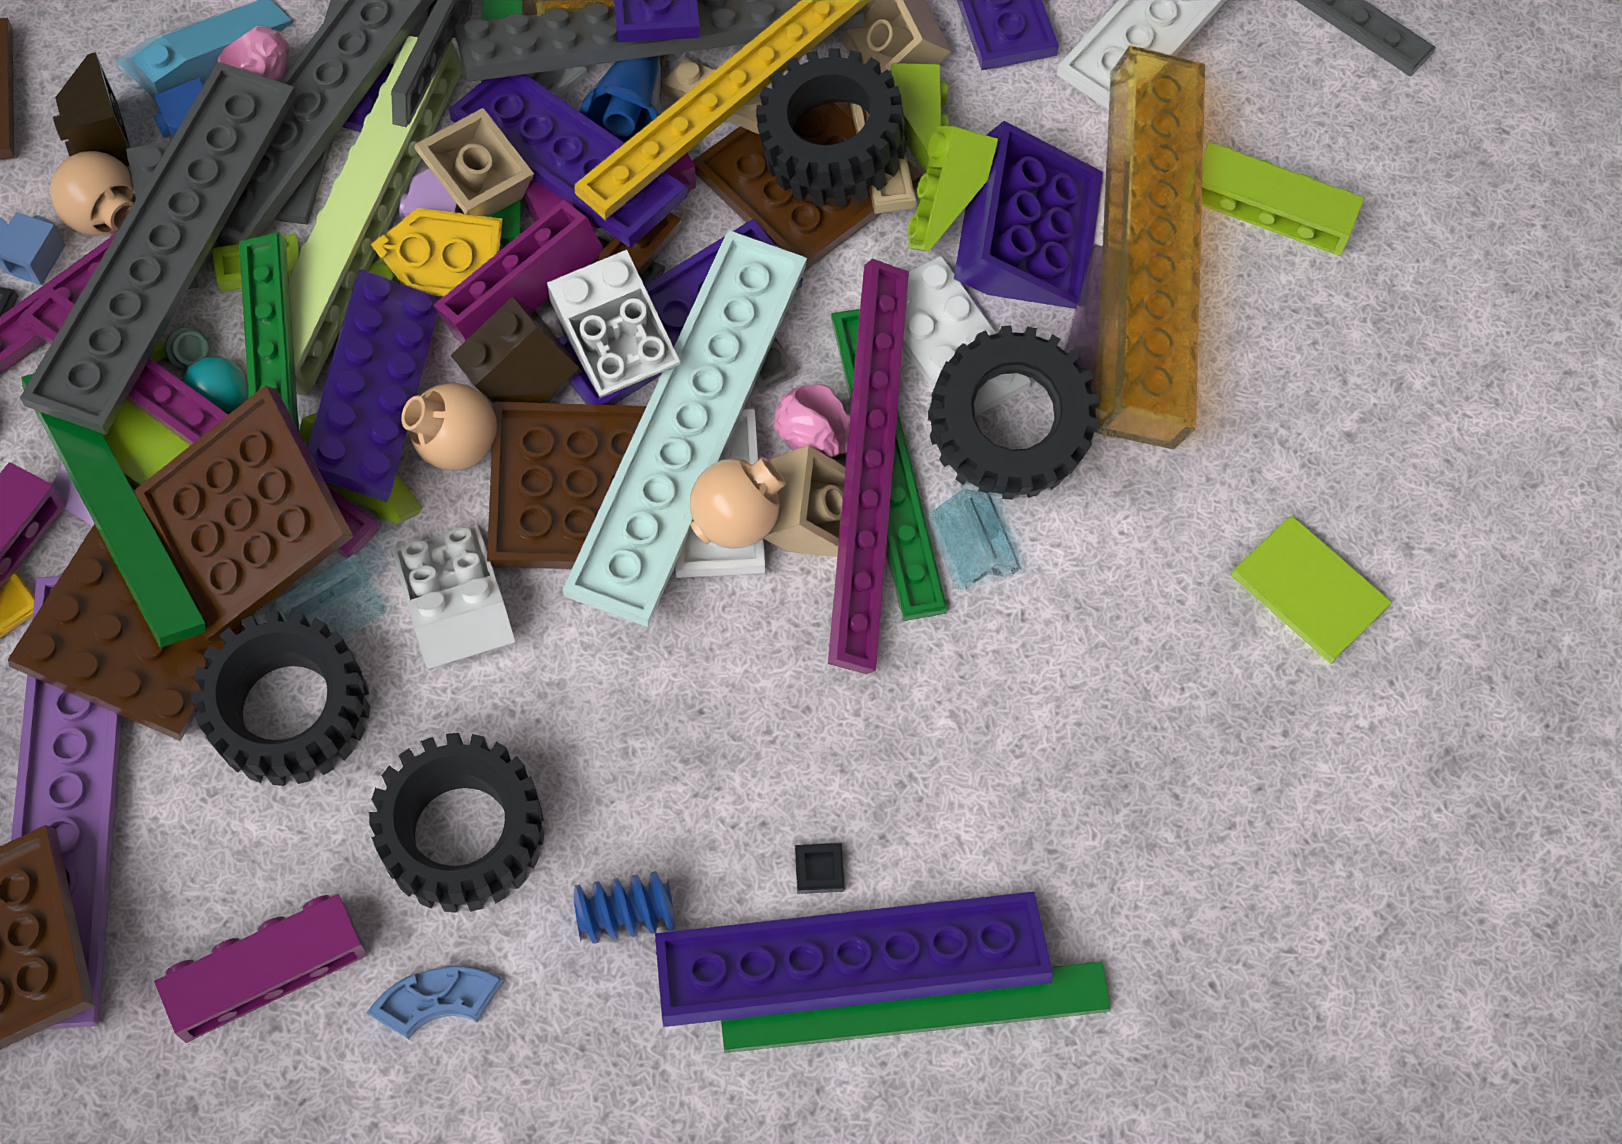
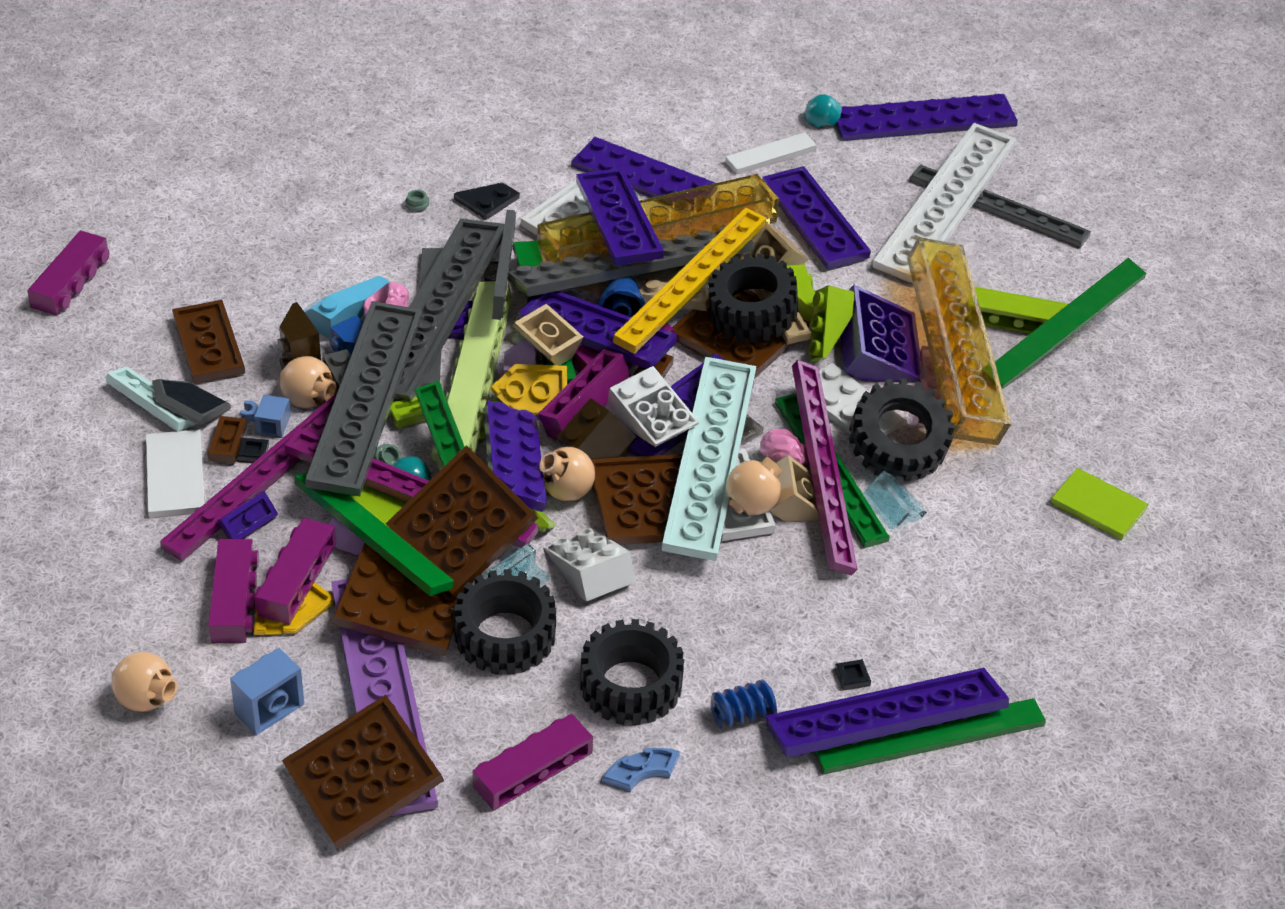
camera: 10 degrees left, 20 degrees down
(1343, 233) = (1068, 321): none -> green tile

